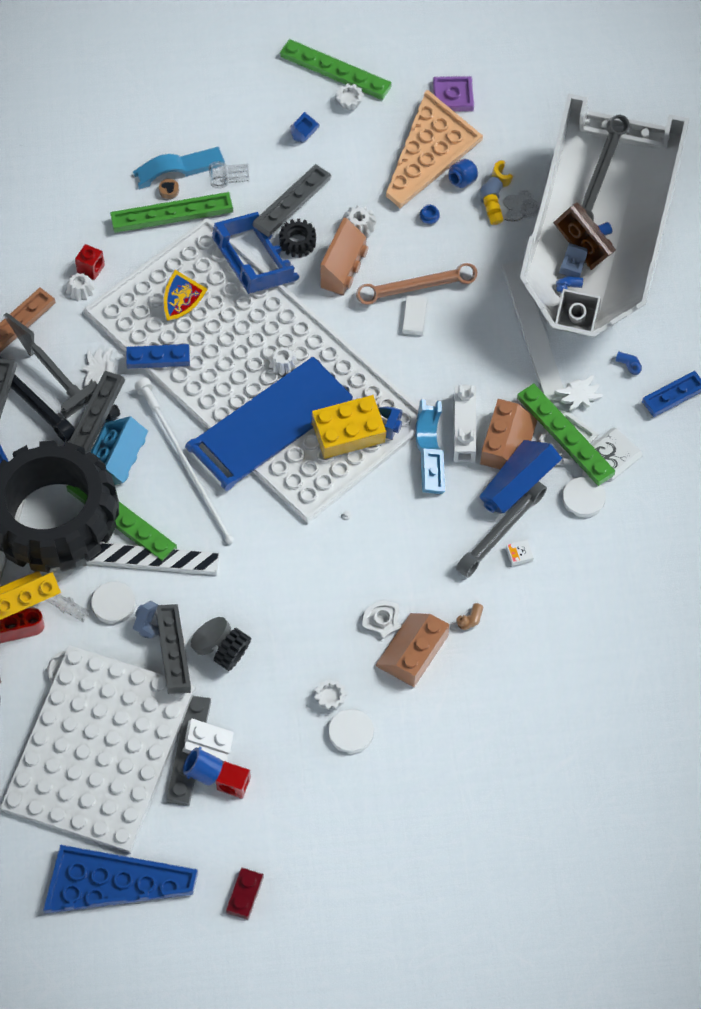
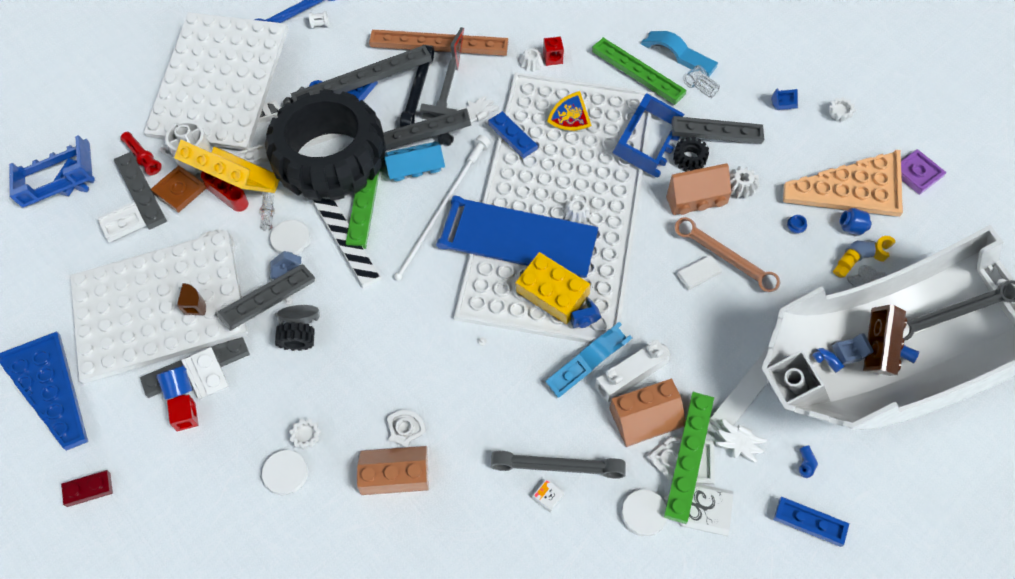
camera: 55 degrees right, 0 degrees up
(132, 706) = (190, 301): none -> reddish brown brick
(169, 188) = (656, 58): medium nougat tile -> none
(335, 69) = (856, 89): bright green plate -> none
(471, 620) = (453, 498): medium nougat arm -> none
(519, 474) = (614, 443): blue slope -> none

